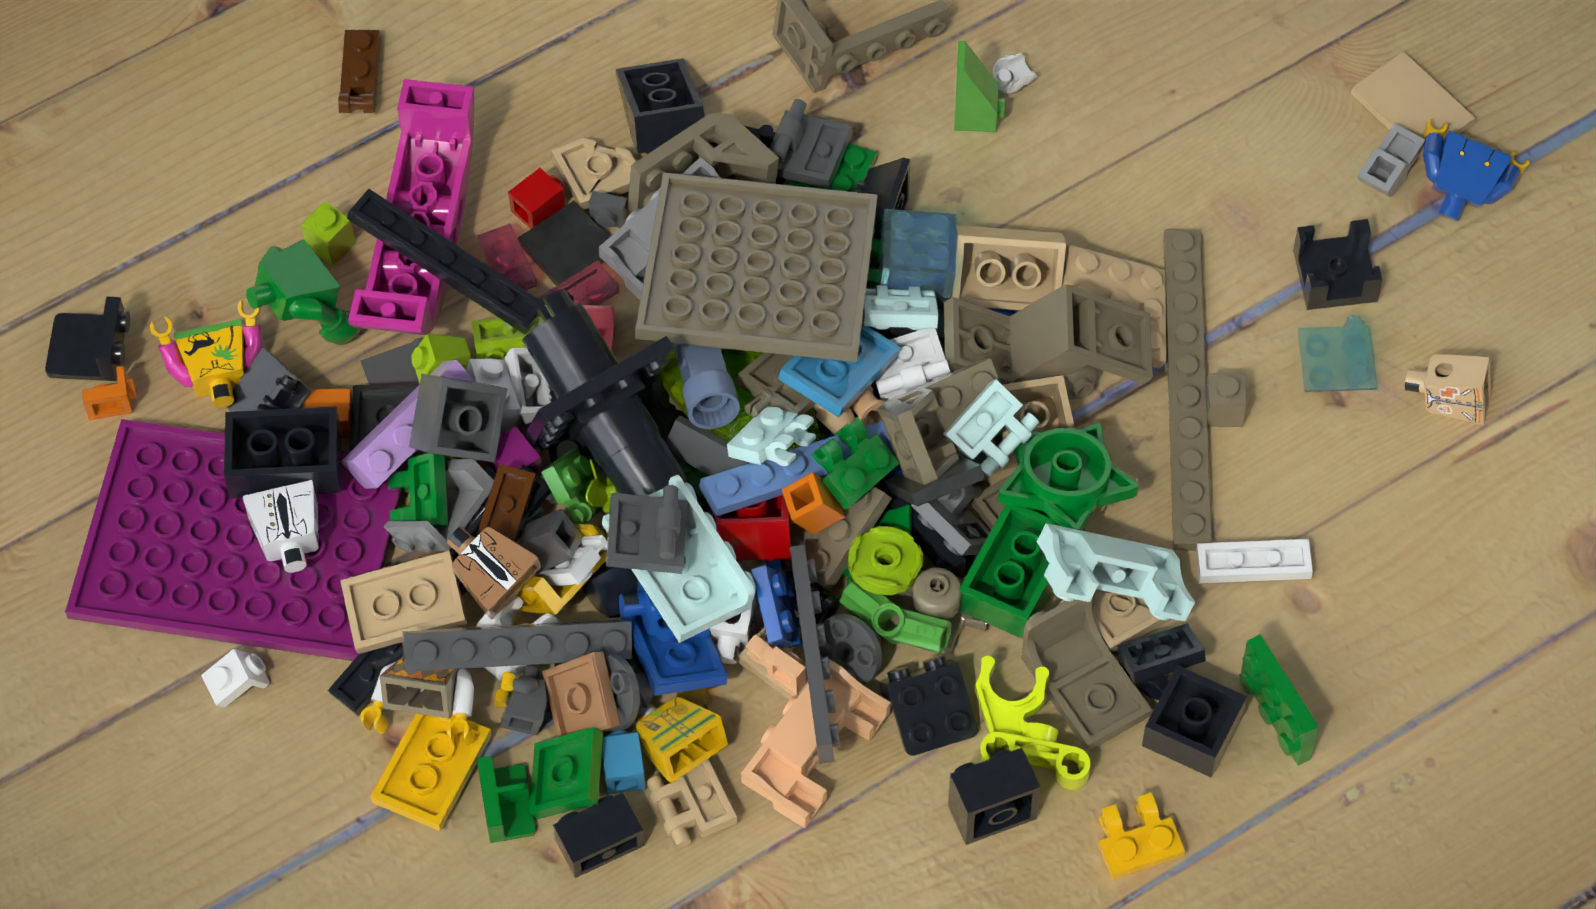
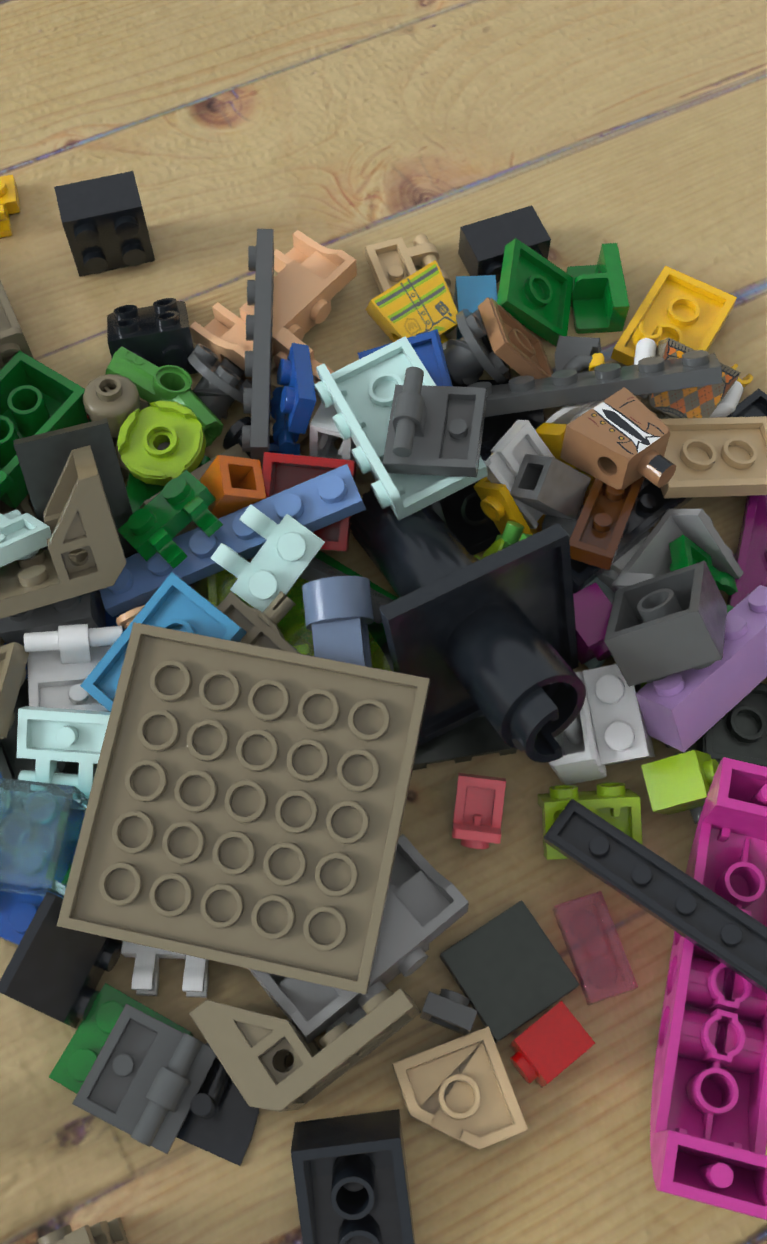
camera: 175 degrees left, 5 degrees up
(589, 286) = (500, 879): clear pink plate -> none
(1010, 731) = (60, 289): neon yellow piece -> none

